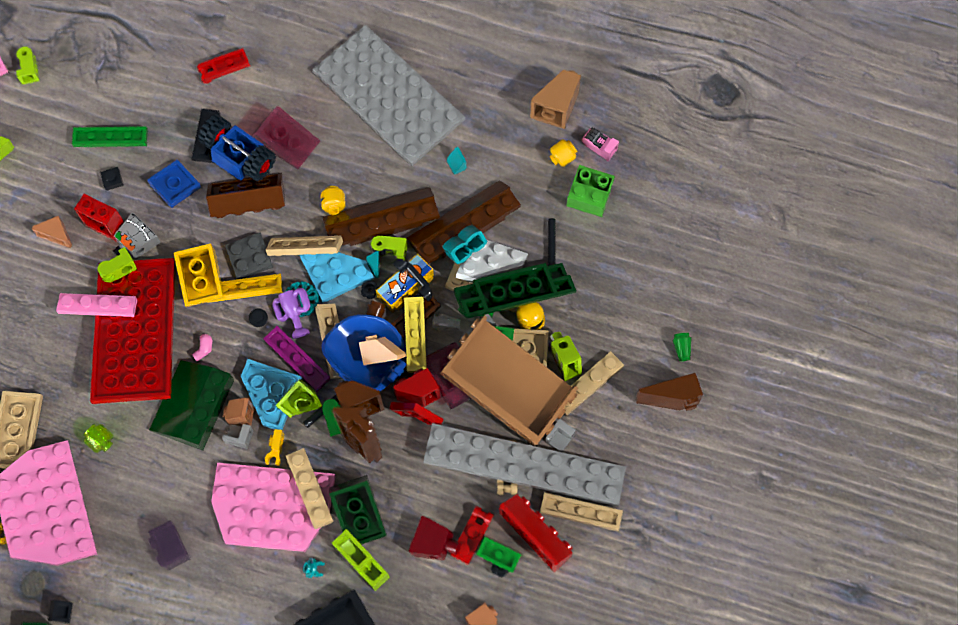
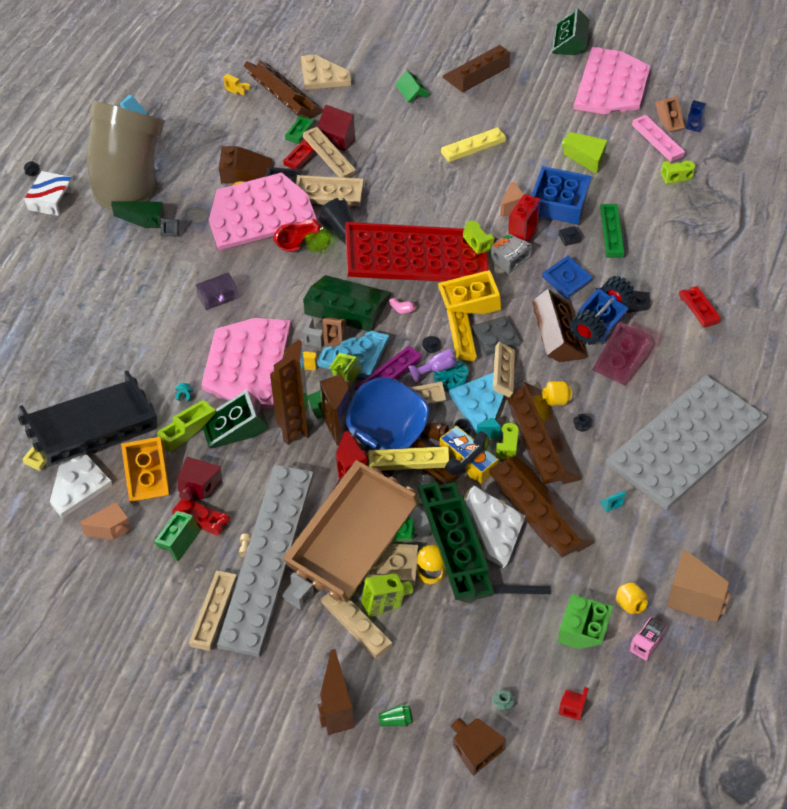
camera: 90 degrees right, 20 degrees down
(55, 181) = (561, 194): none -> blue slope
(74, 413) = (334, 217): none -> black cone
(90, 463) = (294, 234): none -> red piece
(96, 305) = (438, 226): bright pink plate -> none
(309, 488) = (253, 383): tan plate -> none
(365, 185) = (580, 425): none -> black plate
(379, 350) = (390, 427): light nougat slope -> none
(416, 411) = (326, 458): red tile -> none
(417, 595) = (145, 469): none -> light orange slope
(467, 242) = (507, 495): teal brick -> none
(536, 532) = (193, 562): red slope -> none
(662, 205) = (573, 704): none -> red panel
(662, 265) = (503, 705): none -> sand green plate
(706, 282) = (476, 743): none -> reddish brown torso

